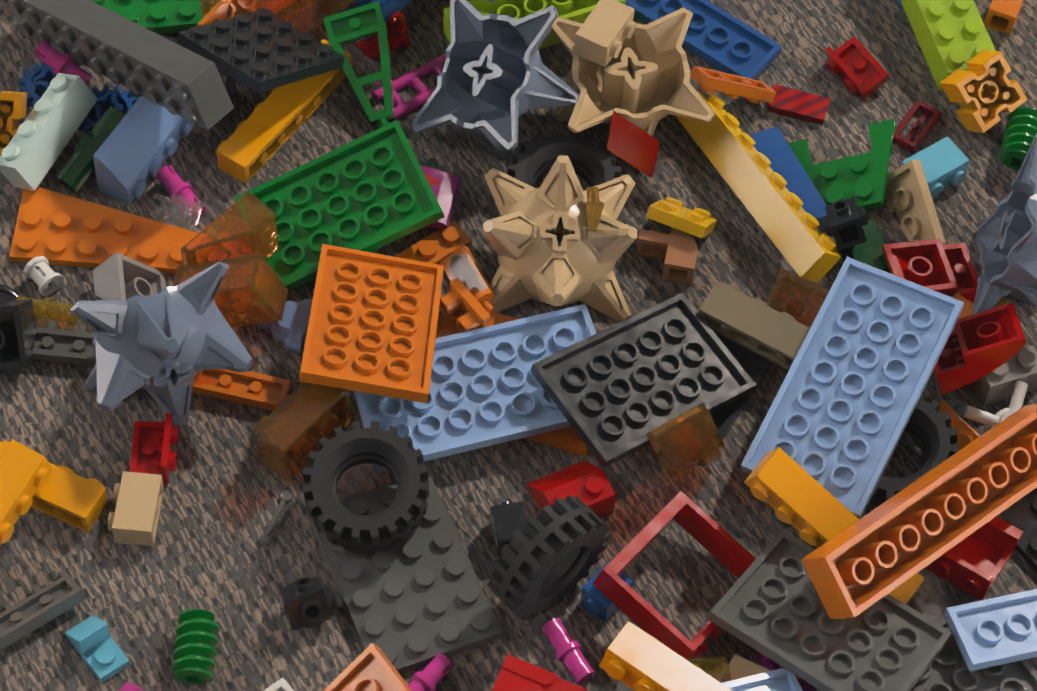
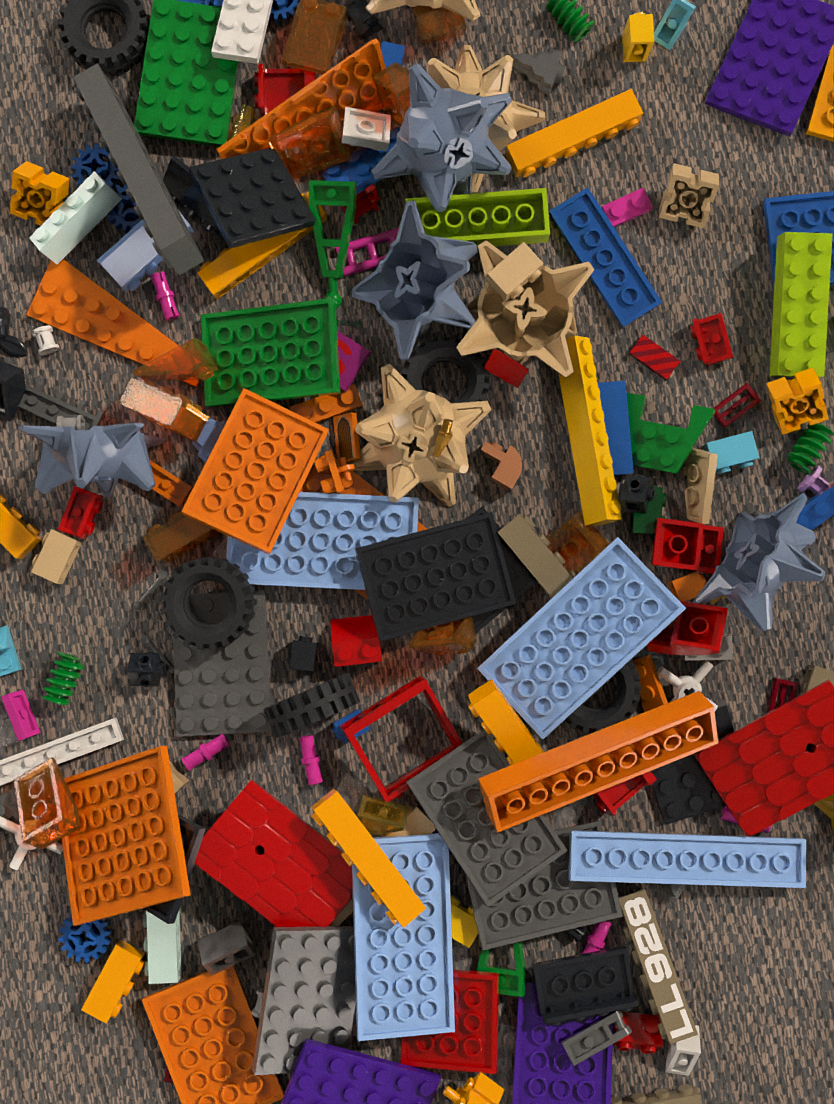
camera: 20 degrees right, 30 degrees up
(52, 310) = (41, 369): clear yellow pin -> none
(60, 62) = (101, 158): dark pink pin -> none
(81, 164) = (104, 241): dark green piece -> none
(124, 277) = (103, 374): light grey slope -> none
(178, 211) = (158, 315): clear plate -> none
(671, 213) = (520, 439): yellow plate -> none
(732, 85) = (605, 333): orange plate -> none

